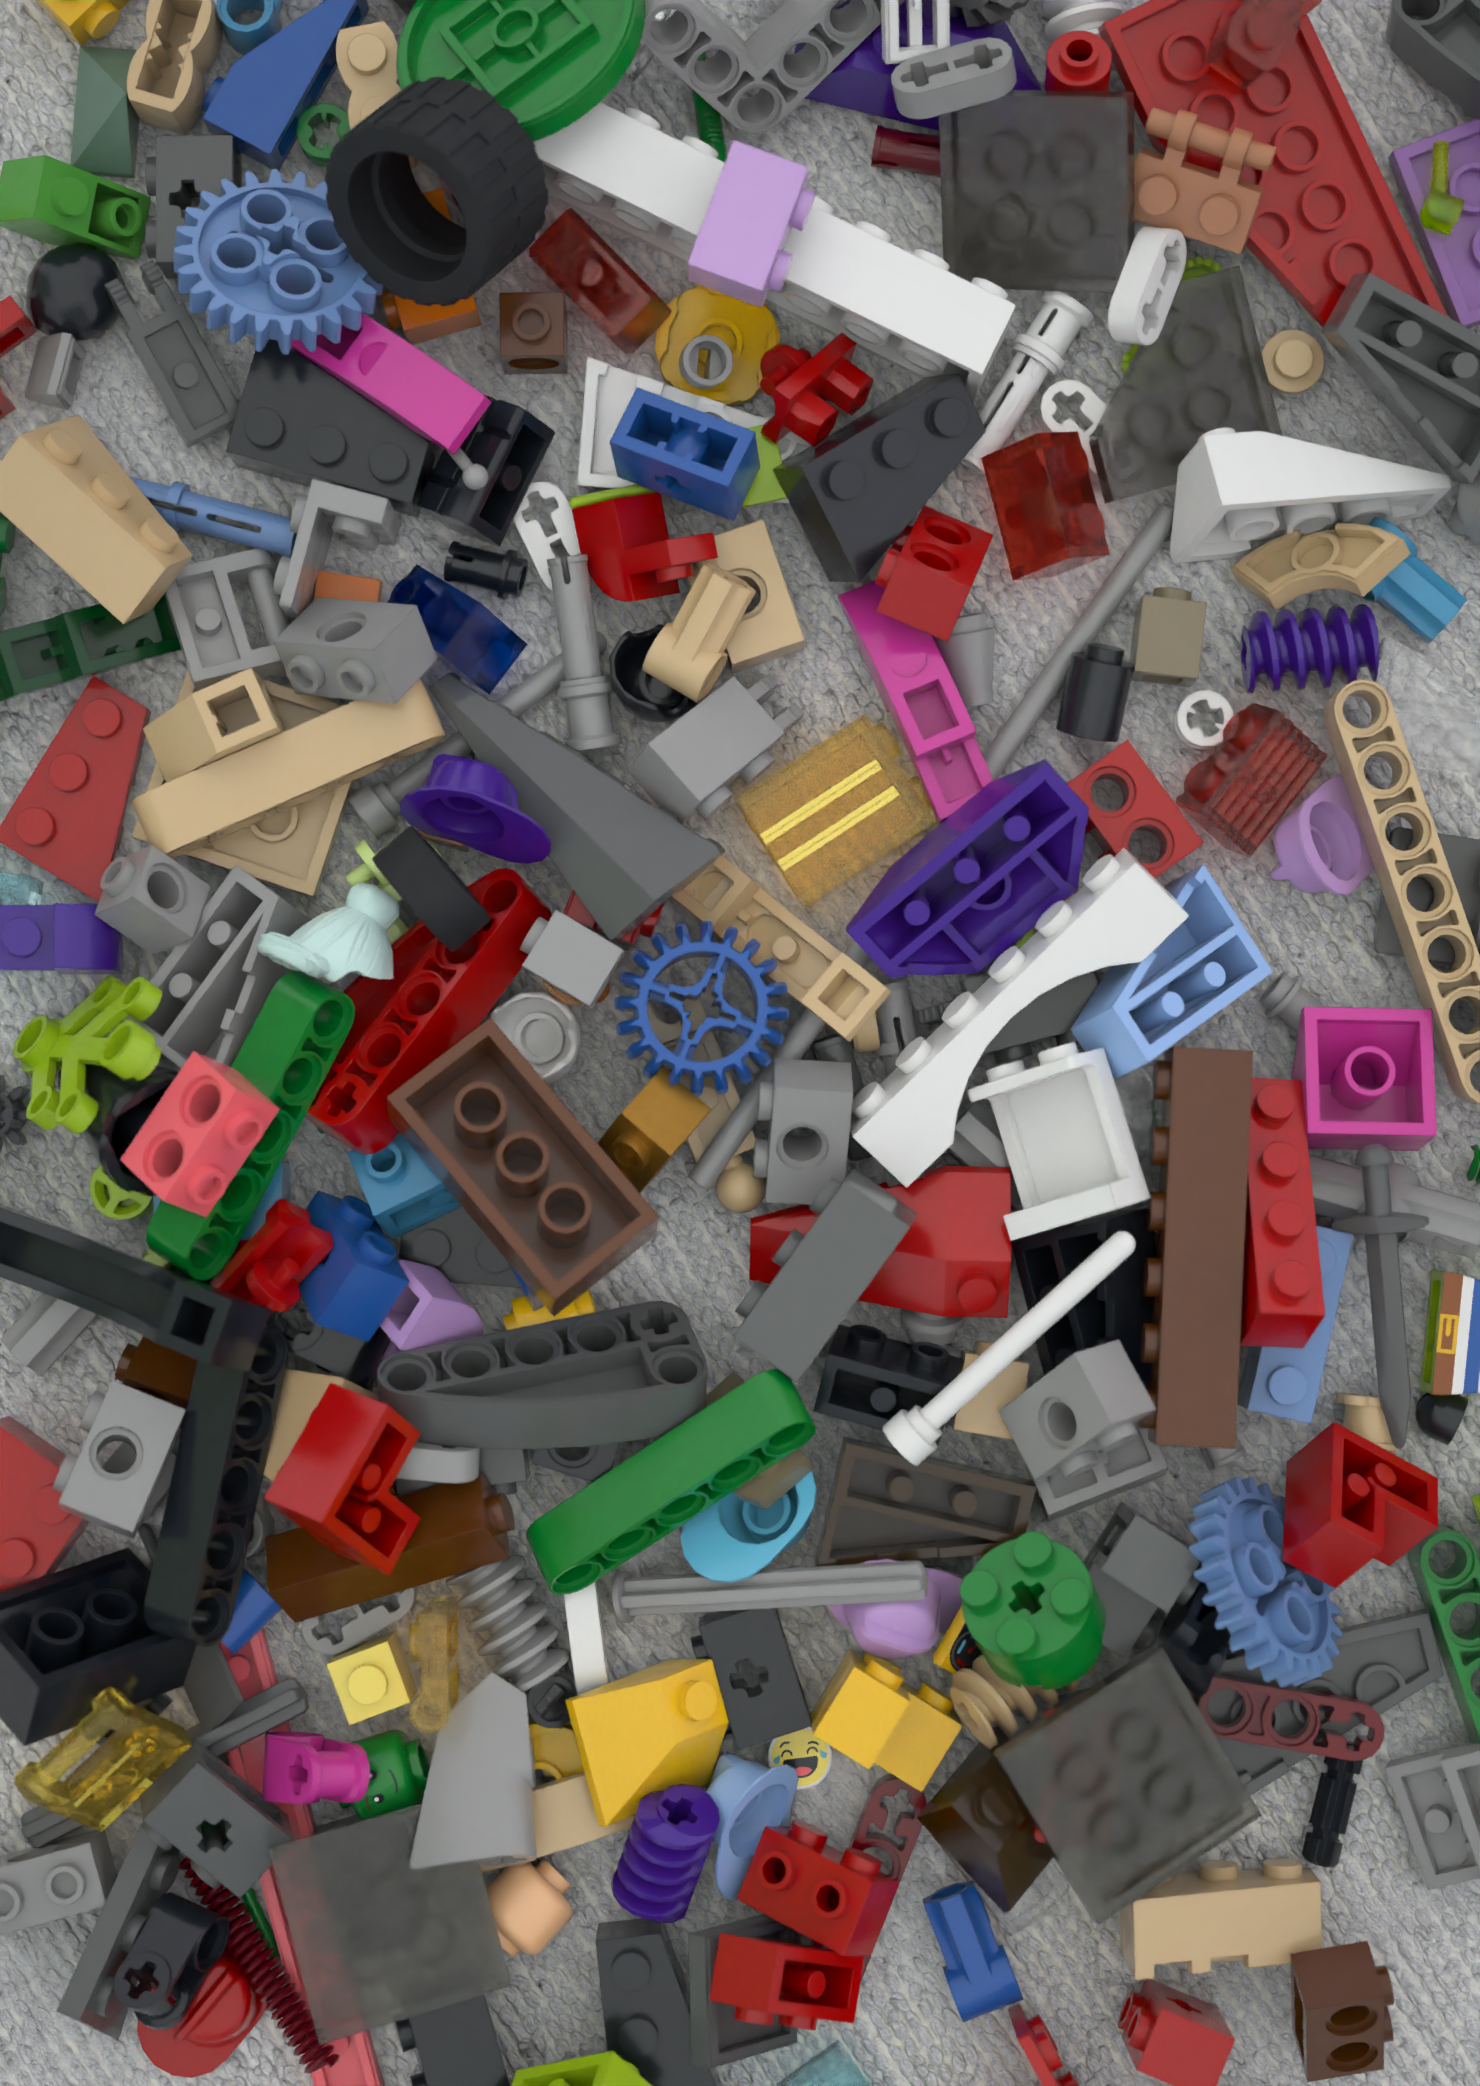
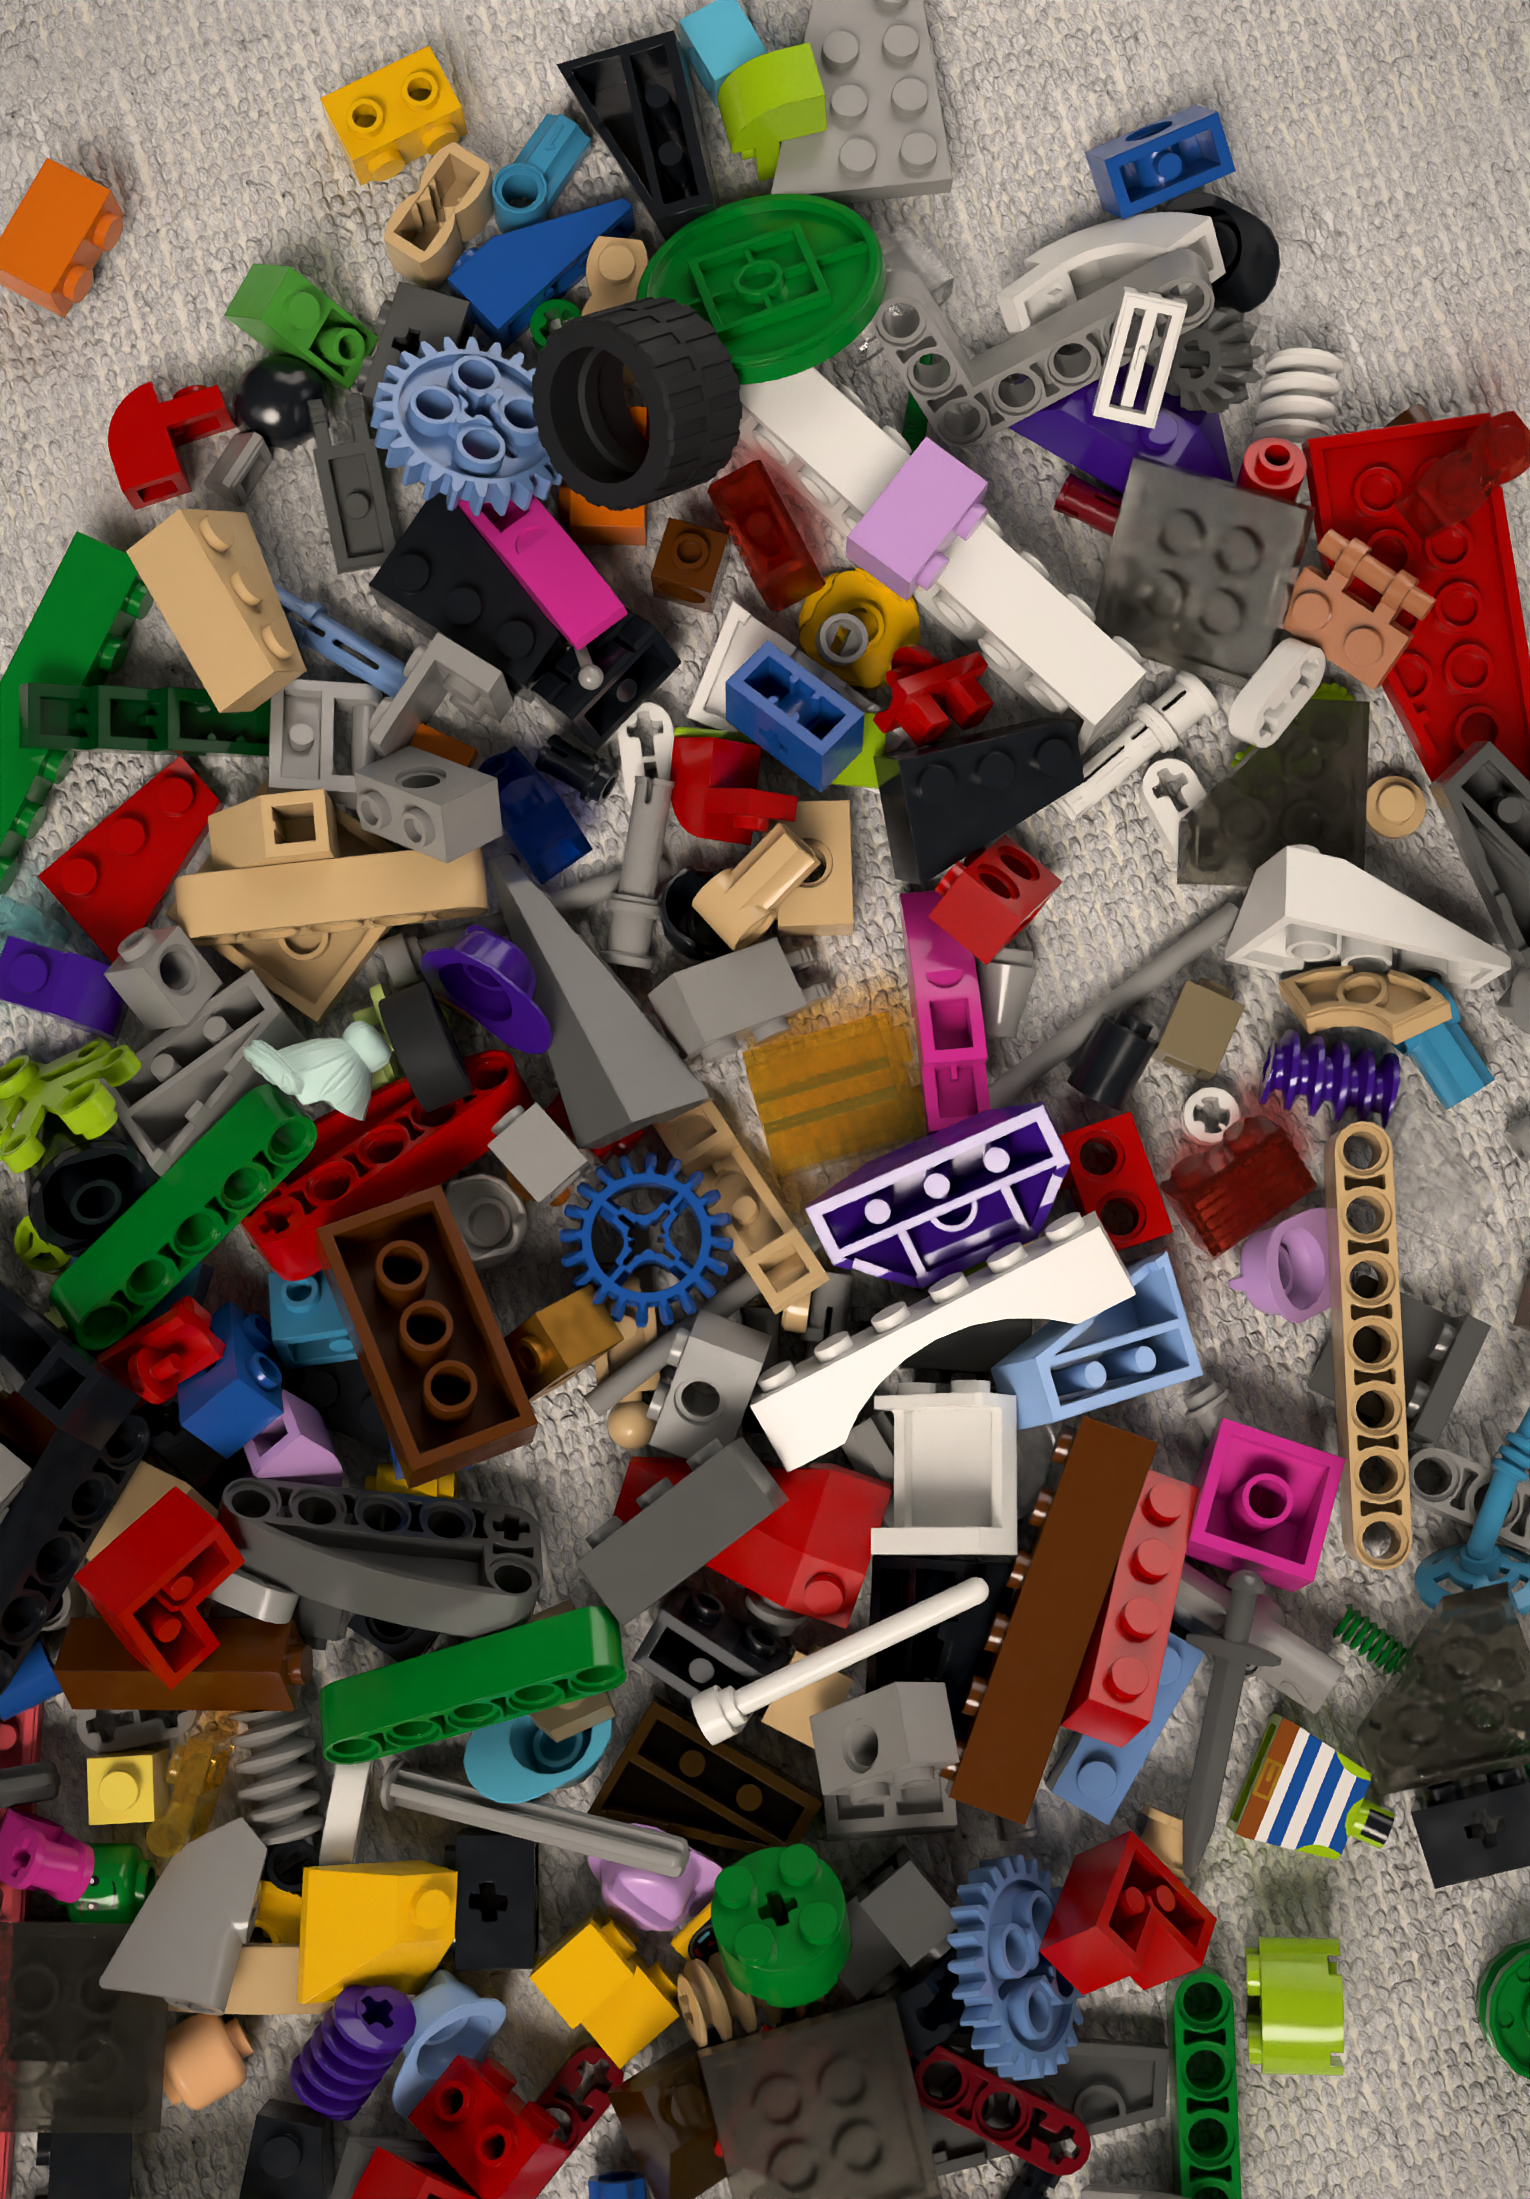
camera: 20 degrees right, 5 degrees down
(103, 115) = (359, 256): sand green slope -> none
(199, 1134) = (128, 1209): coral brick -> none
(803, 1752) = (519, 1995): tile -> none
(953, 78) = (1152, 446): light grey beam -> none
(1045, 505) = (1120, 868): clear red brick -> none
(1440, 1415) = (1238, 1857): black hinge -> none

